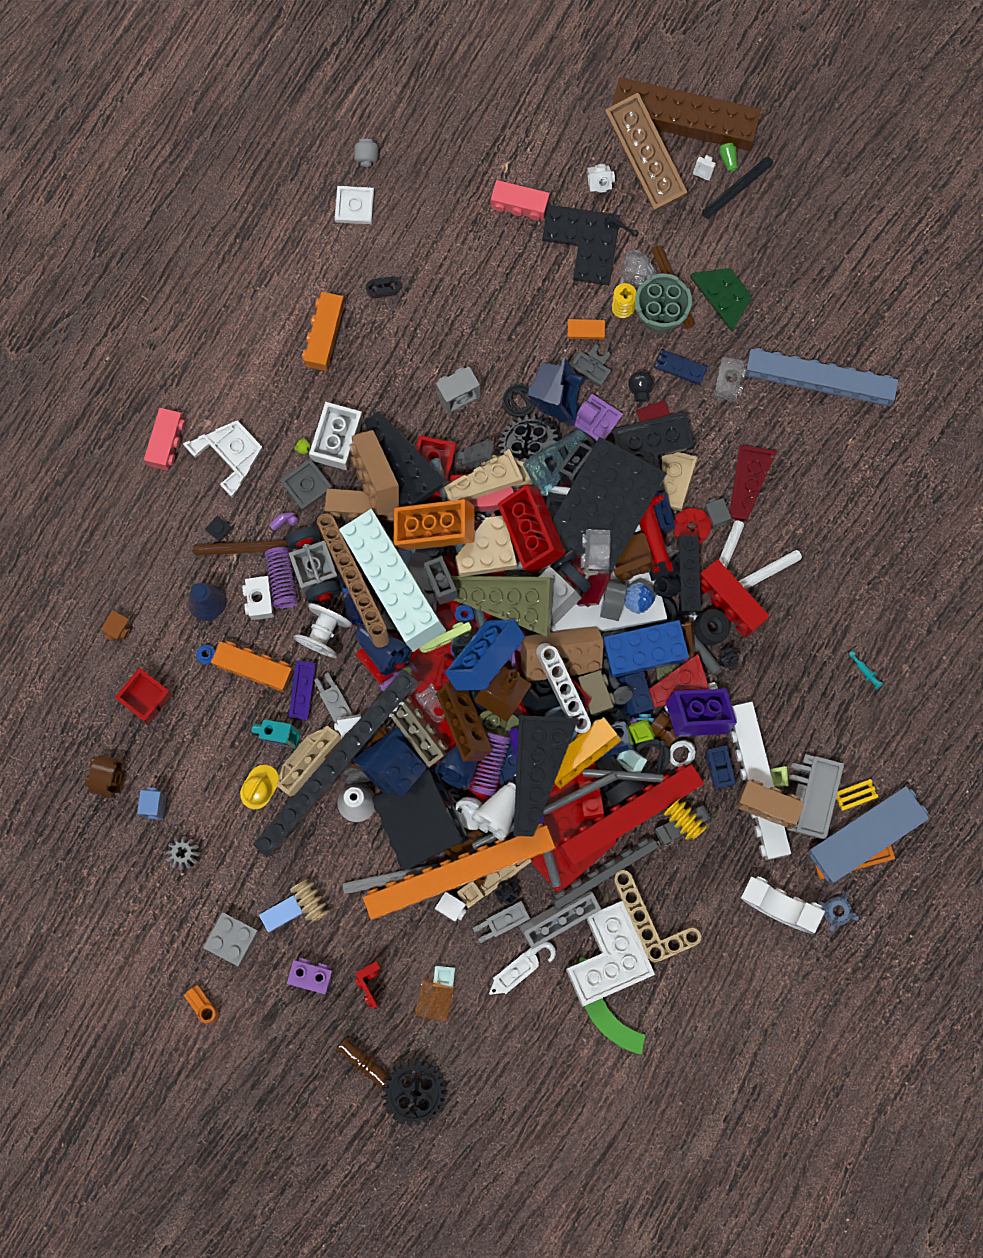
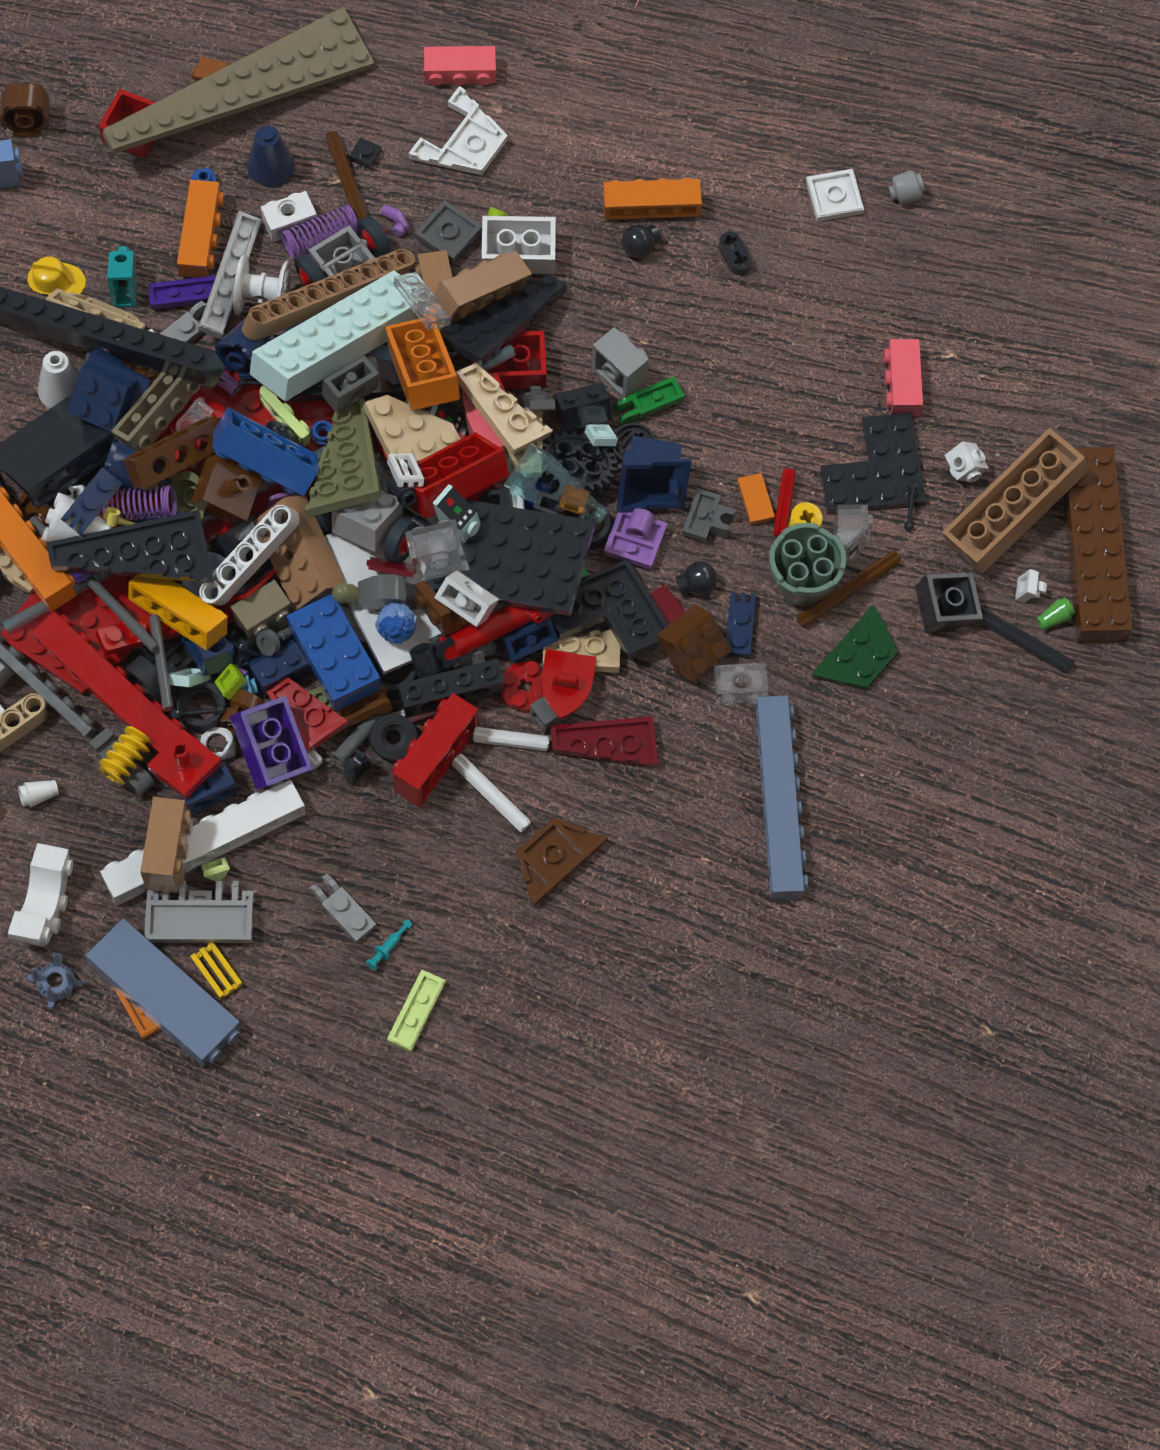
camera: 70 degrees right, 10 degrees down
(127, 562) = (288, 66): none -> dark tan wing
(298, 653) = (222, 291): none -> light grey tile
(356, 349) = (640, 240): none -> black piece
(380, 512) = (422, 300): none -> clear plate
(481, 424) = (583, 406): none -> black slope
(488, 377) = (650, 400): none -> green hinge
(490, 793) = (92, 500): none -> dark blue hinge
(501, 780) = (112, 517): none -> light yellow hand
(510, 420) = (601, 435): none -> light aqua tile
(527, 560) = (402, 474): none -> white tile
(542, 565) = (405, 495): none -> black pin
(571, 448) = (574, 499): none -> clear orange tile
(571, 530) = (452, 506): none -> slope
(594, 310) = (784, 501): none -> red axle
(607, 627) = (345, 593): none -> olive cylinder
(638, 541) = (466, 598): none -> white brick
(689, 892) = (36, 792): none -> white cone
(696, 399) = (694, 643): none -> reddish brown brick
(701, 494) = (566, 680): none -> red shield
(704, 222) = (948, 601): none -> black slope
(704, 777) = (184, 764): none -> red tile
(826, 540) = (554, 855): none -> reddish brown wing
(832, 694) = (344, 910): none -> light grey hinge
(917, 664) = (416, 1011): none -> yellowish green tile

